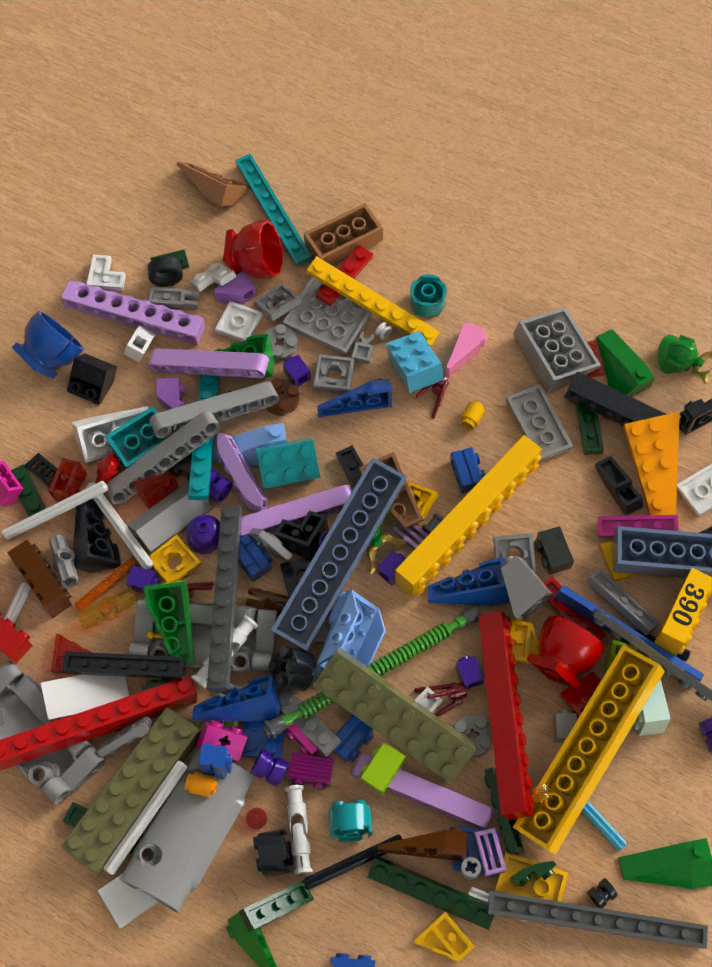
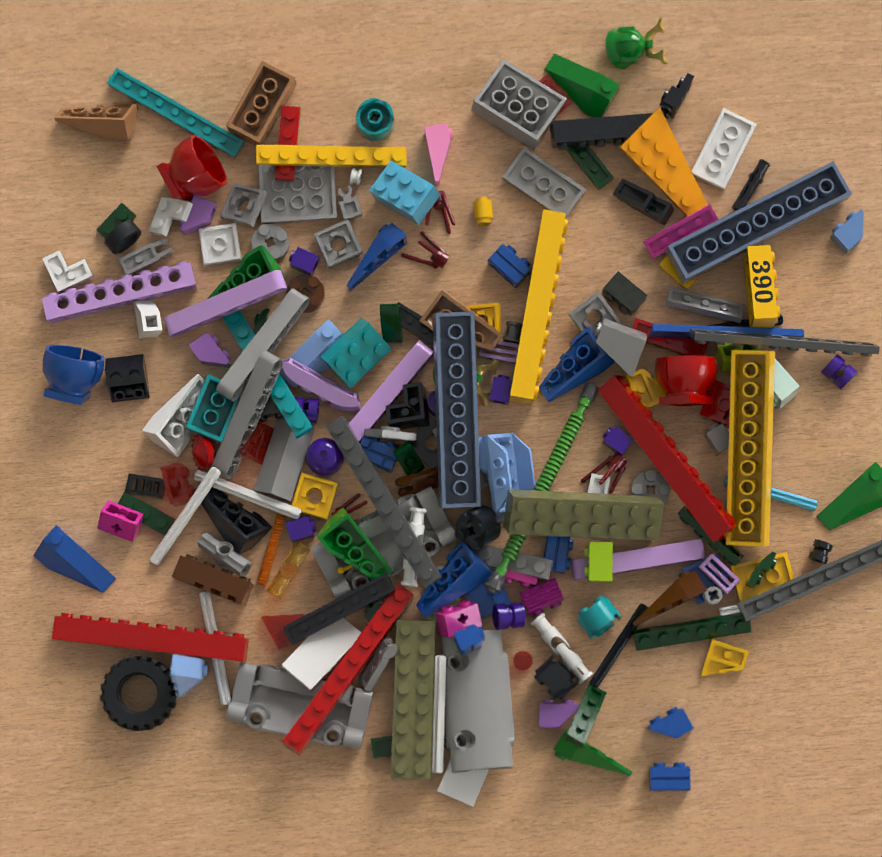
camera: 30 degrees left, 15 degrees up
(201, 784) = (468, 663): light orange brick -> none
(250, 887) = (554, 715): none -> medium lavender slope
(273, 575) = (408, 459): none -> dark green plate
(333, 457) = (391, 323): none -> dark green slope
(411, 429) = (439, 255): none -> dark red plant
(541, 792) = (734, 506): clear yellow plate -> none

